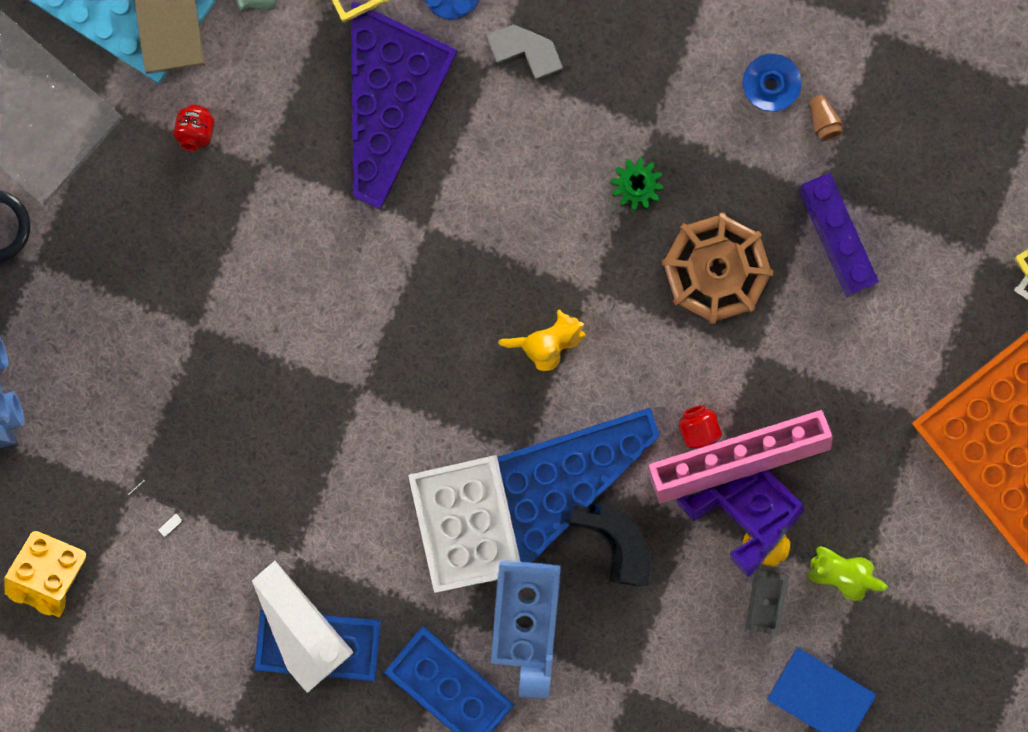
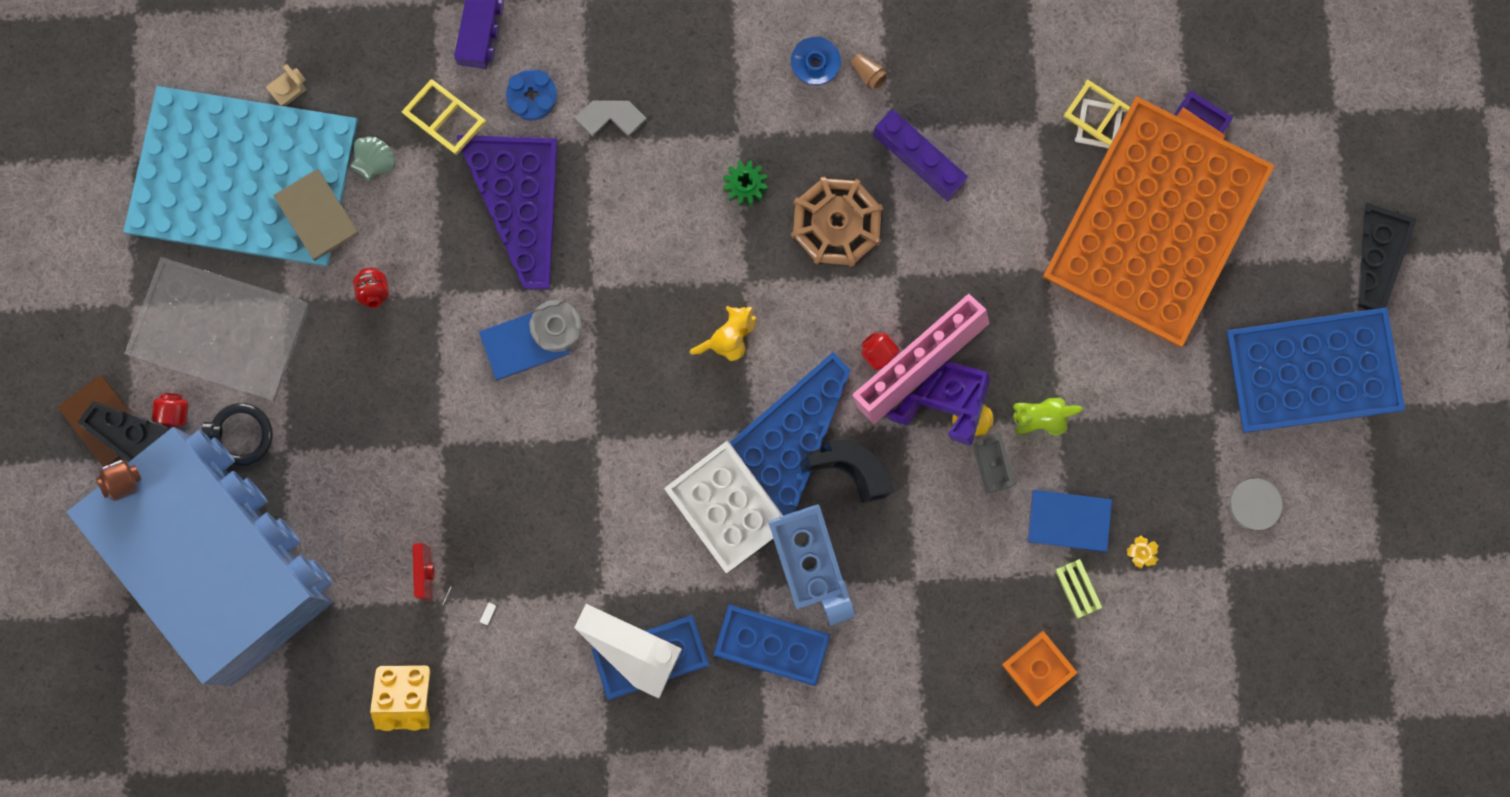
camera: 30 degrees left, 5 degrees down
(119, 455) = (422, 571): none -> red plate
(329, 255) = (514, 349): none -> blue tile
(369, 252) = (555, 326): none -> light grey tile

